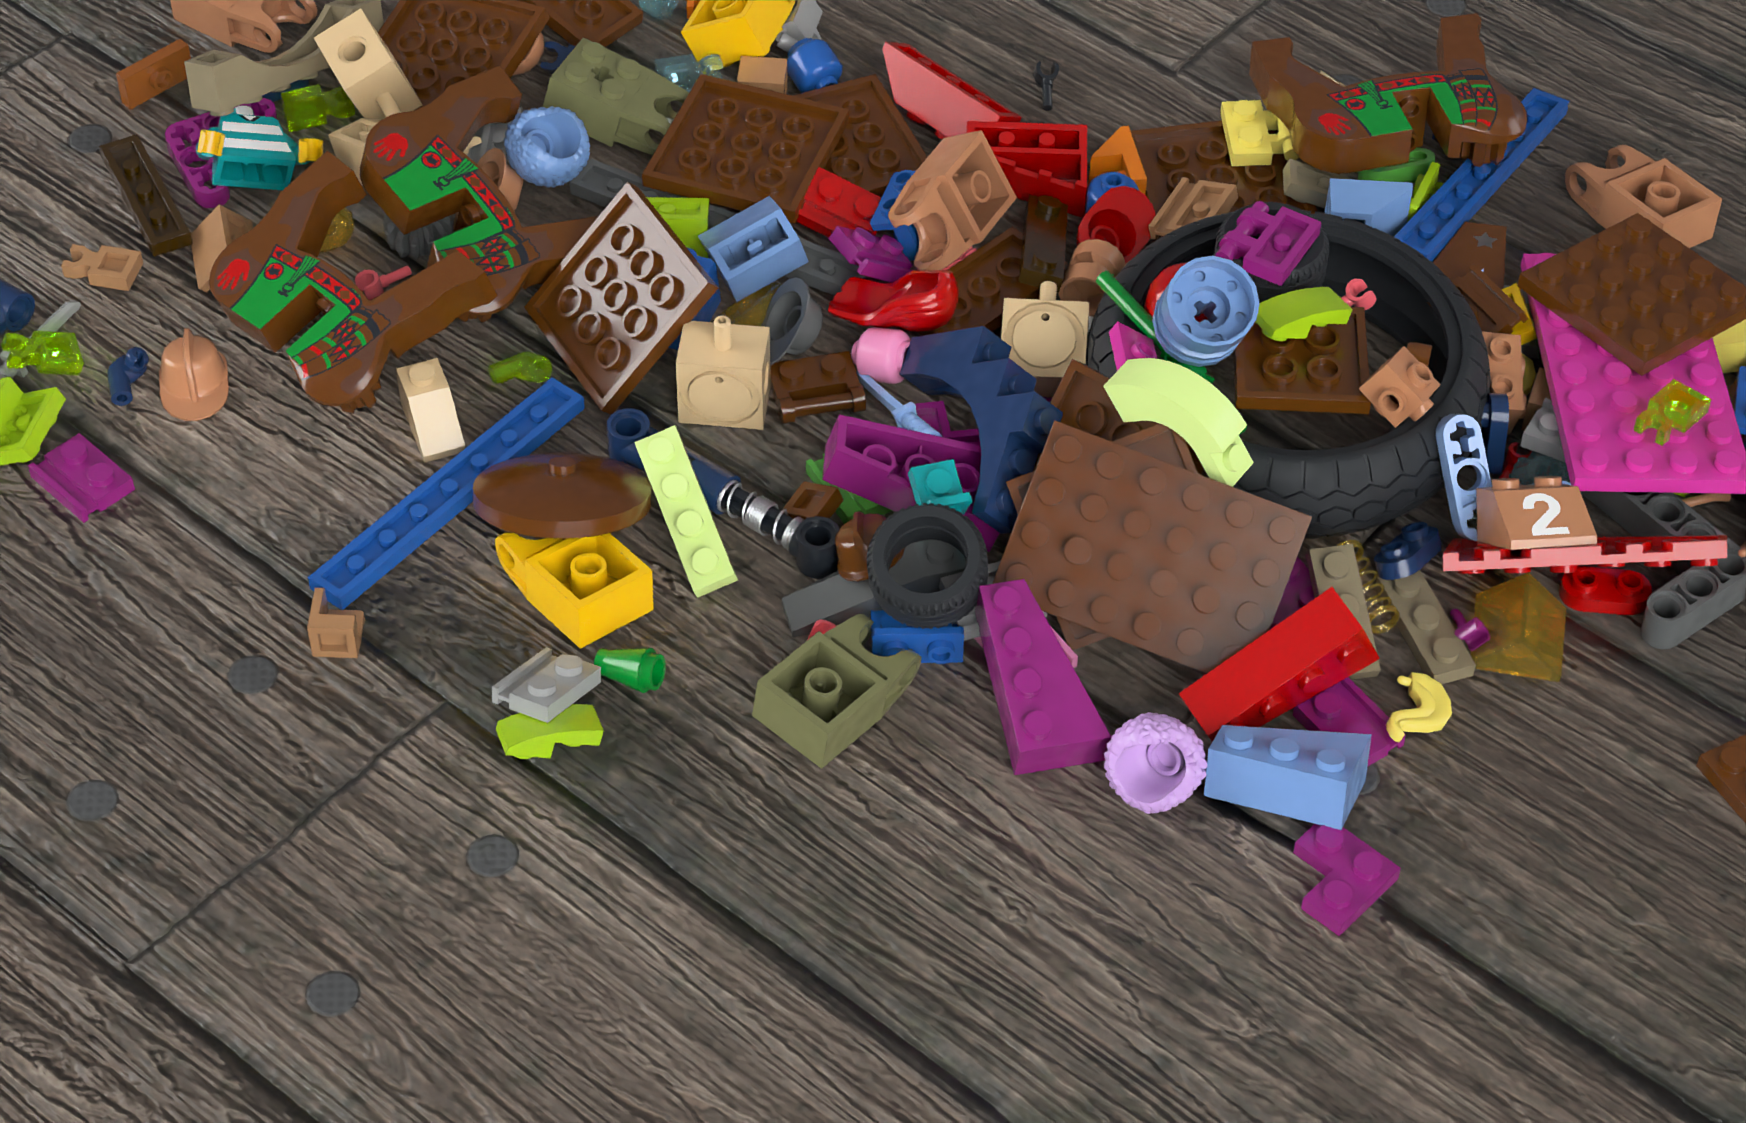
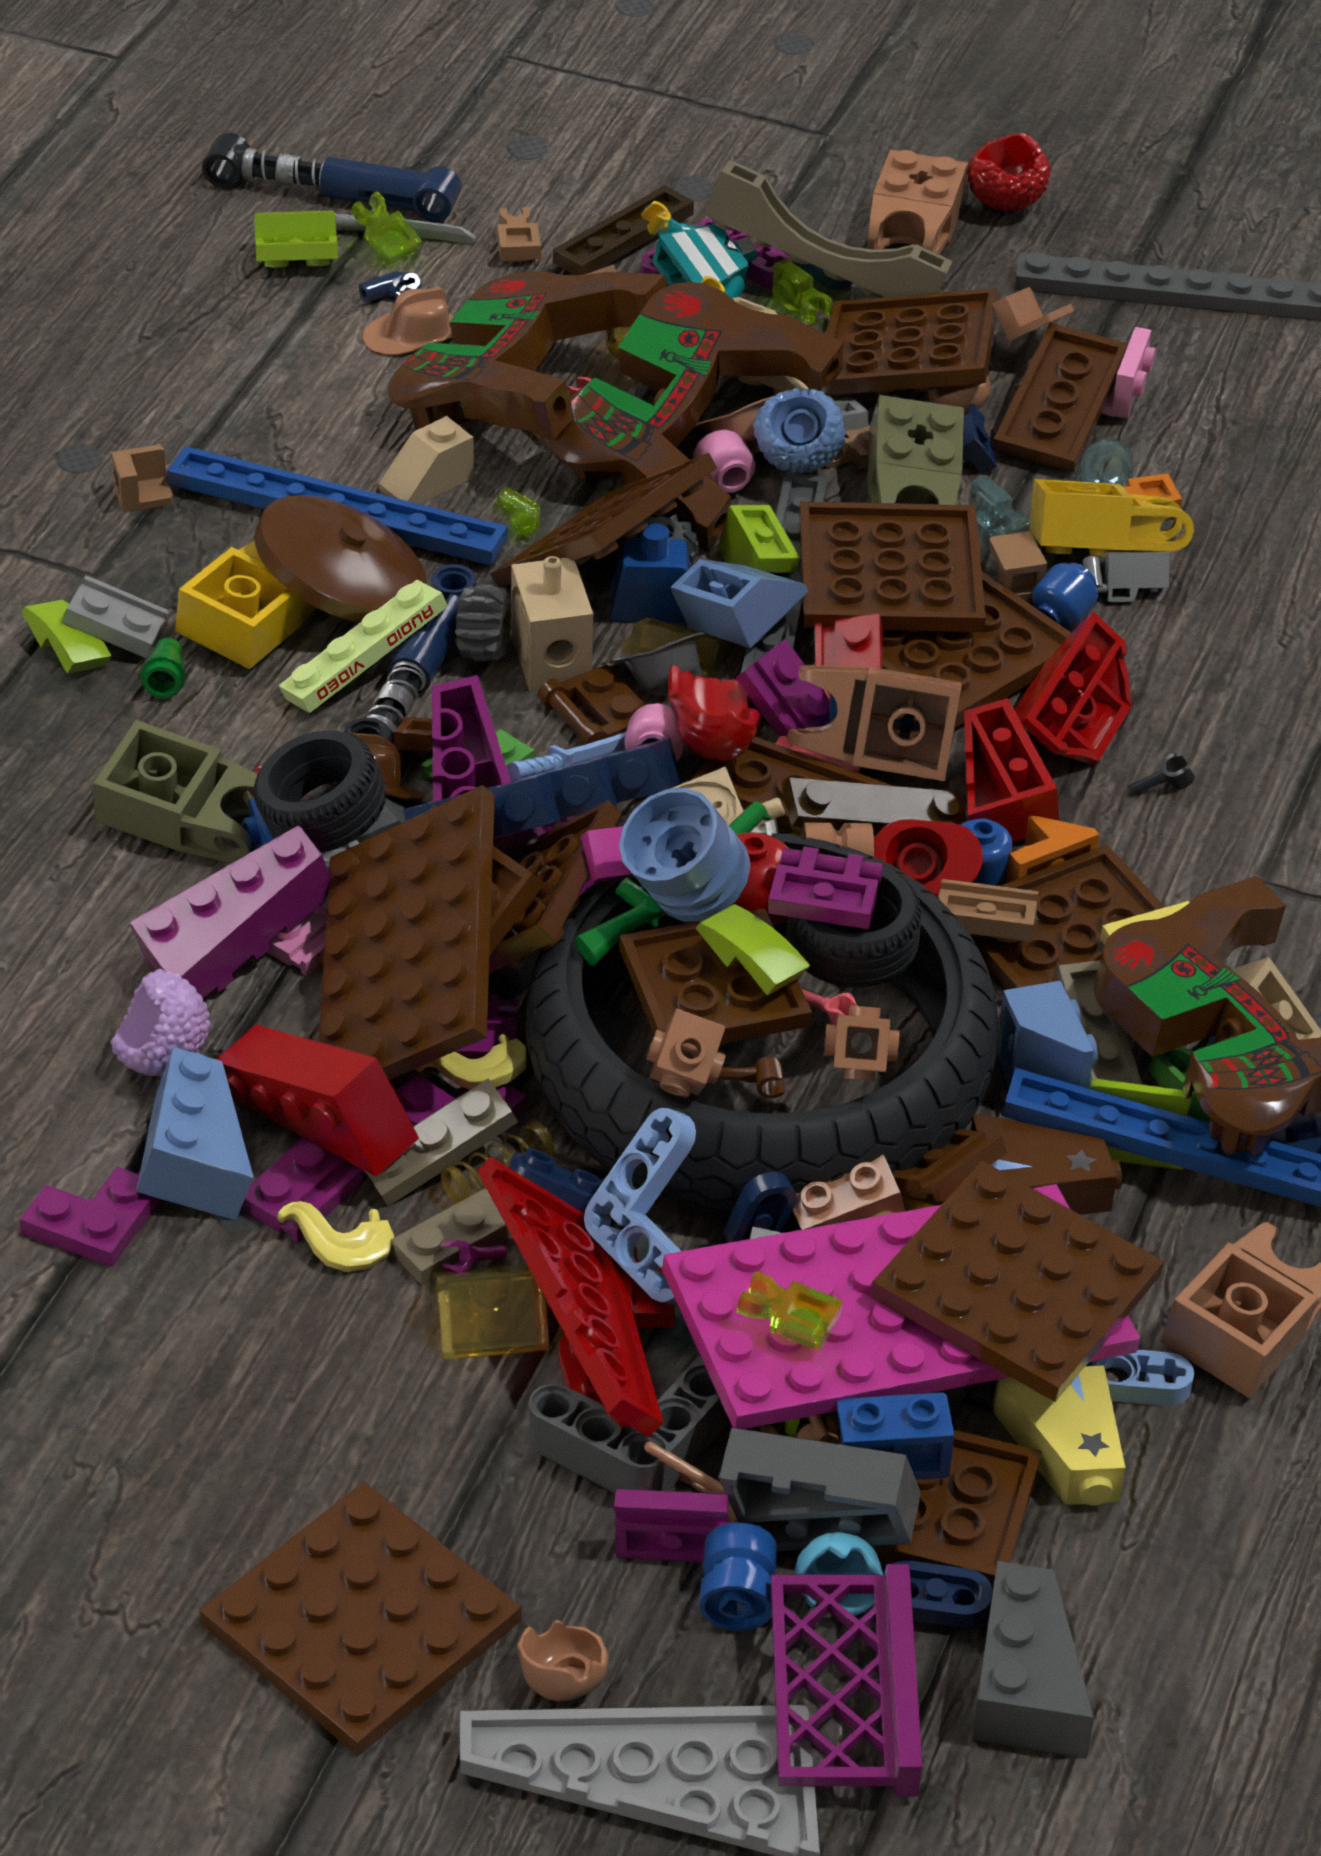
camera: 70 degrees right, 5 degrees down
(81, 477) = (260, 299): magenta plate -> none
(153, 74) = (798, 192): dark orange plate -> none
(366, 68) = (826, 282): tan piece -> none
(538, 207) = (732, 458): none -> bright pink head
(697, 418) = (483, 623): none -> dark grey gear
(939, 485) = (424, 779): teal bracket -> none
(1188, 405) = (534, 869): yellowish green arch -> none
(1416, 285) = (883, 1048): none -> nougat brick
(1533, 514) = (600, 1239): nougat slope -> none

